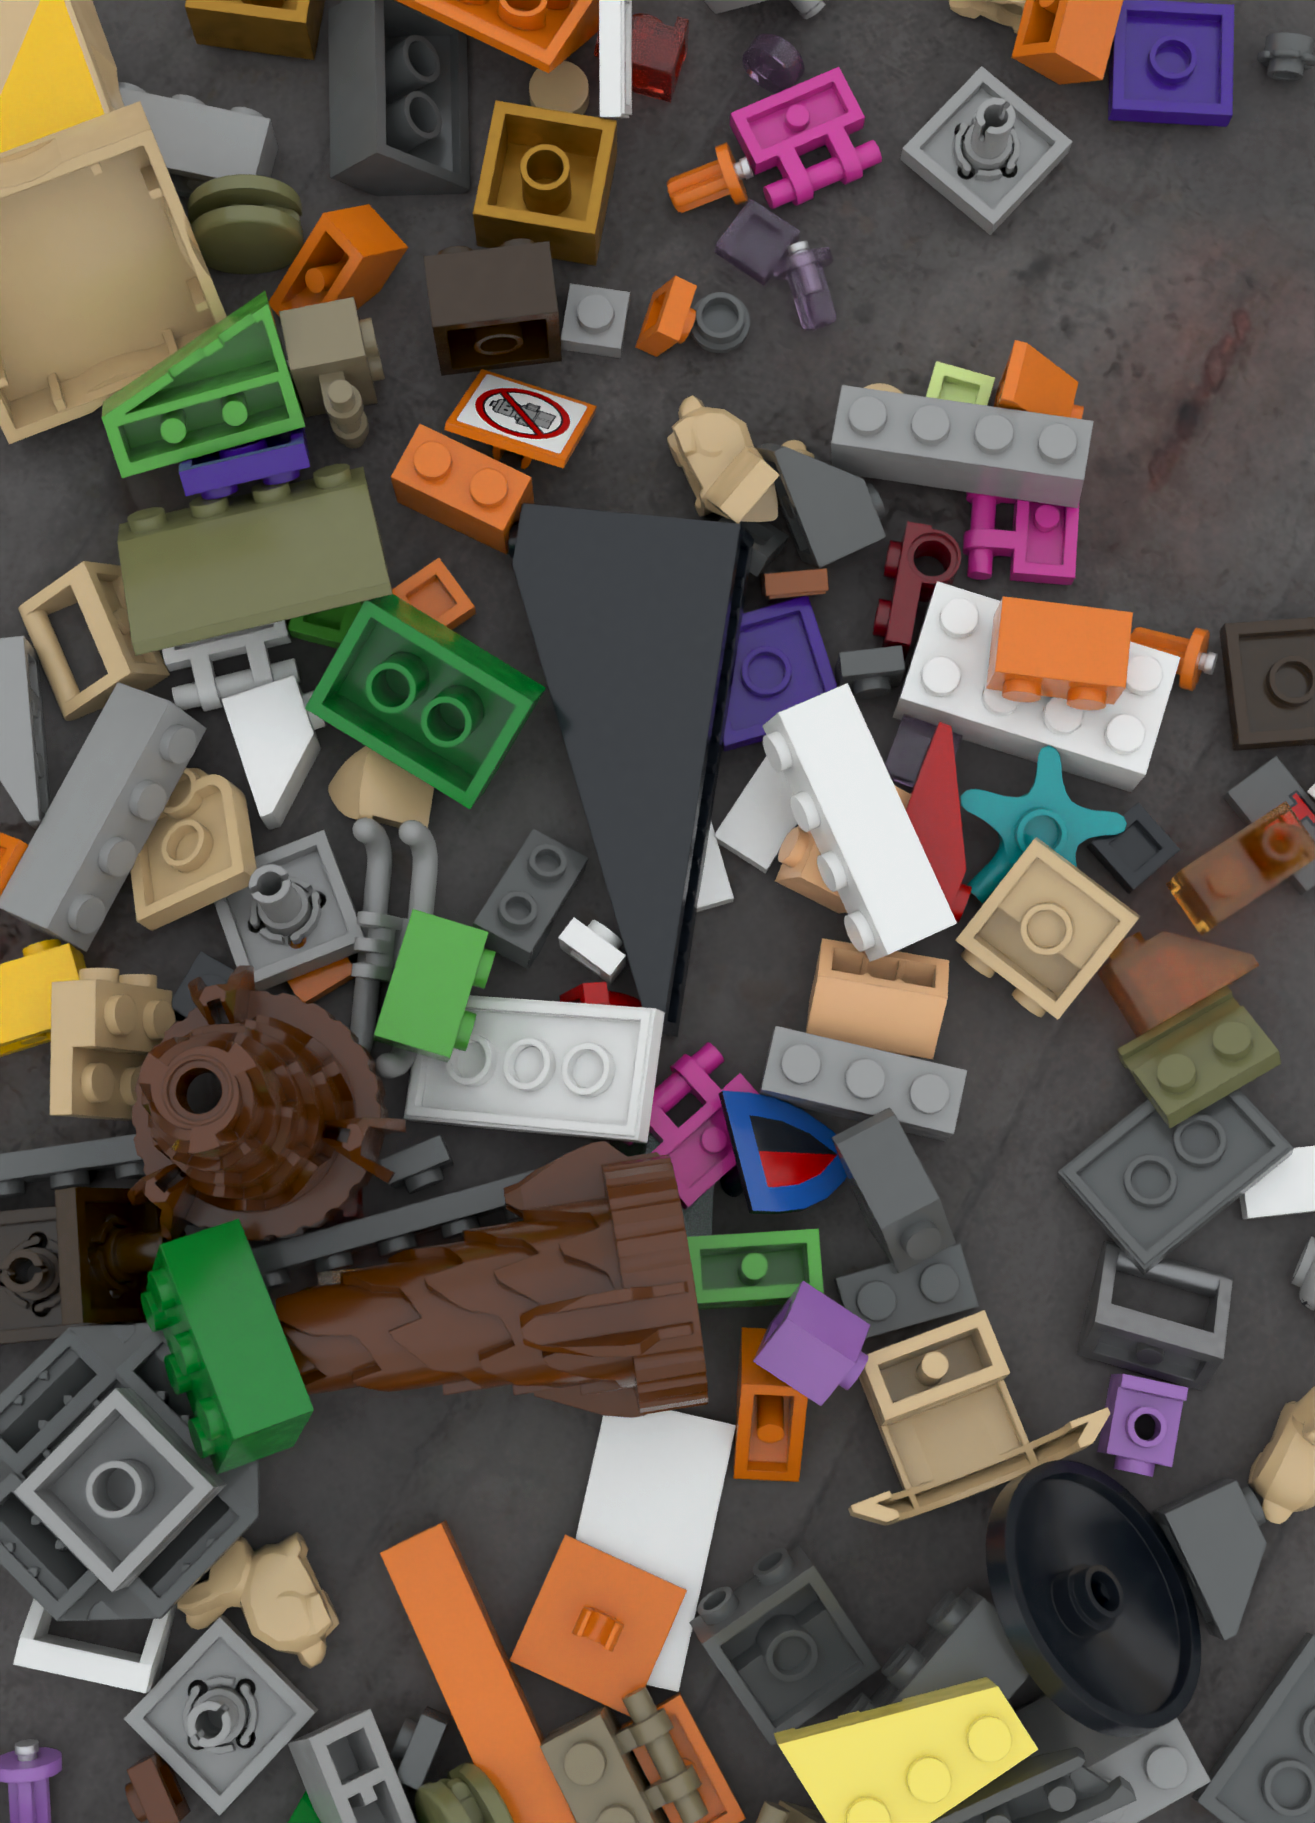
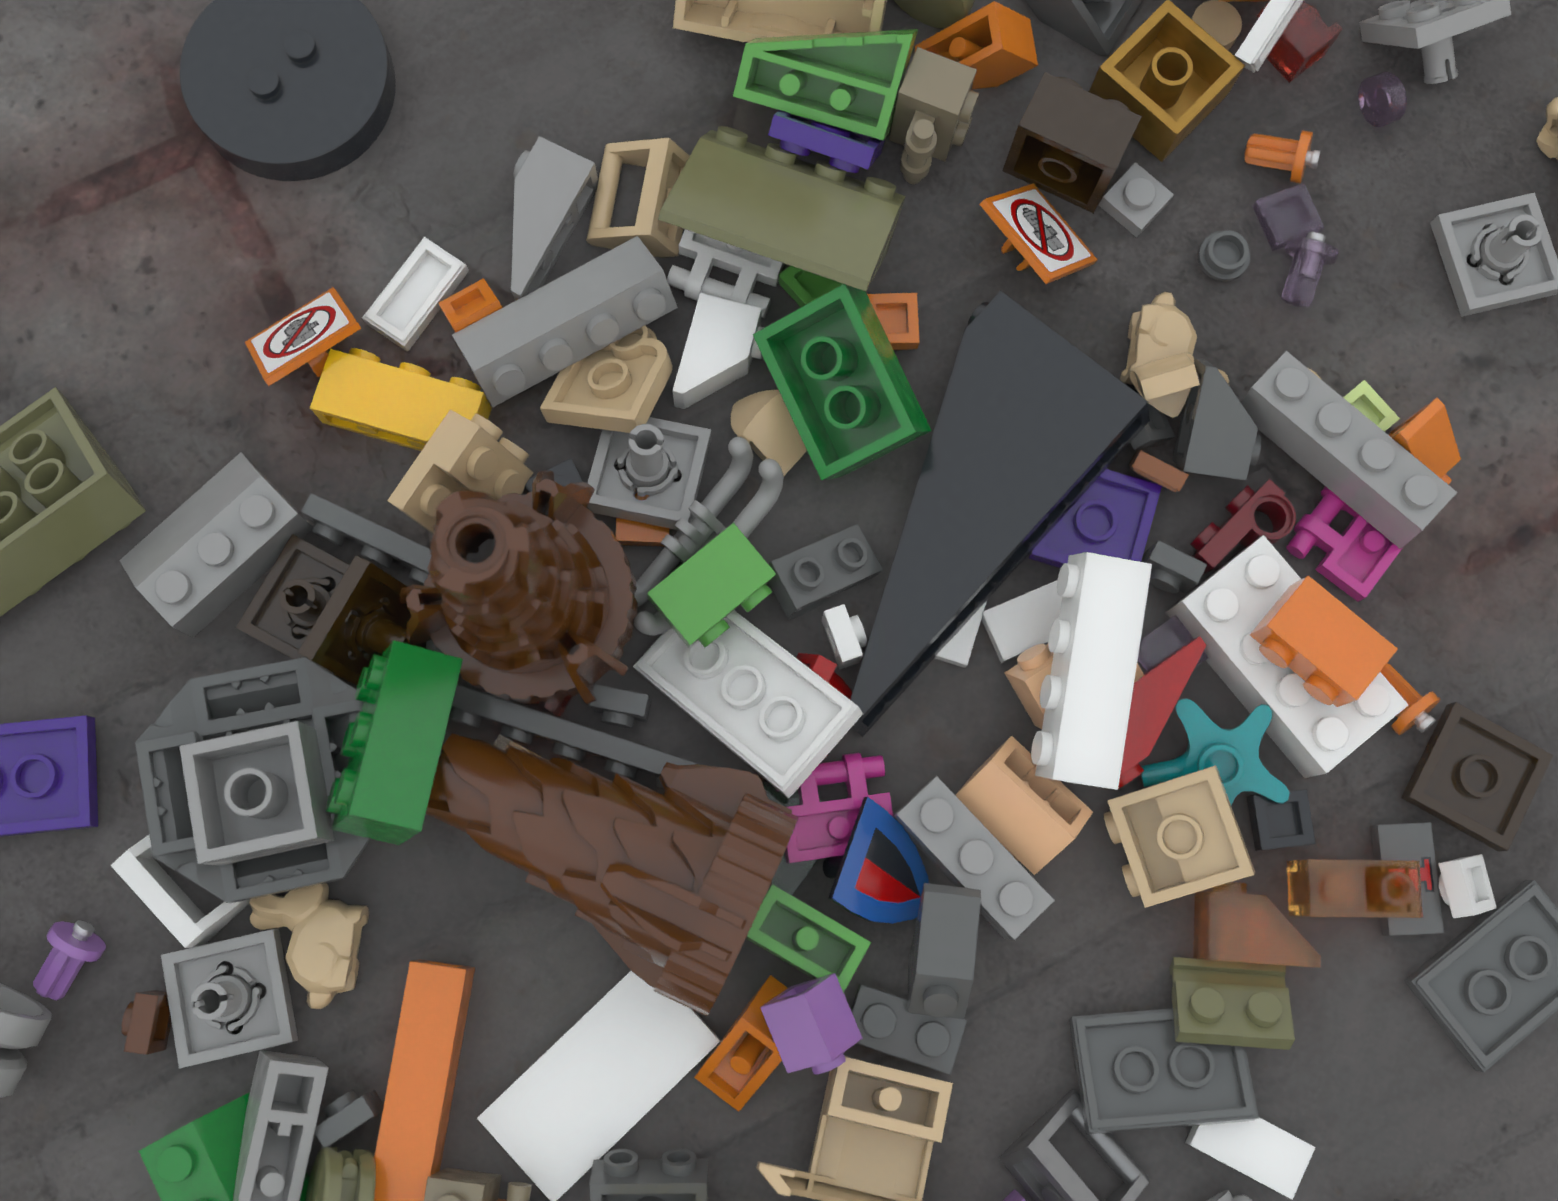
camera: 30 degrees right, 0 degrees up
(461, 487) = (964, 253): orange brick -> none
(597, 1624) = (528, 1116): orange piece -> none
(668, 317) = (1190, 228): orange plate -> none
(798, 122) = (1375, 151): dark pink plate -> none

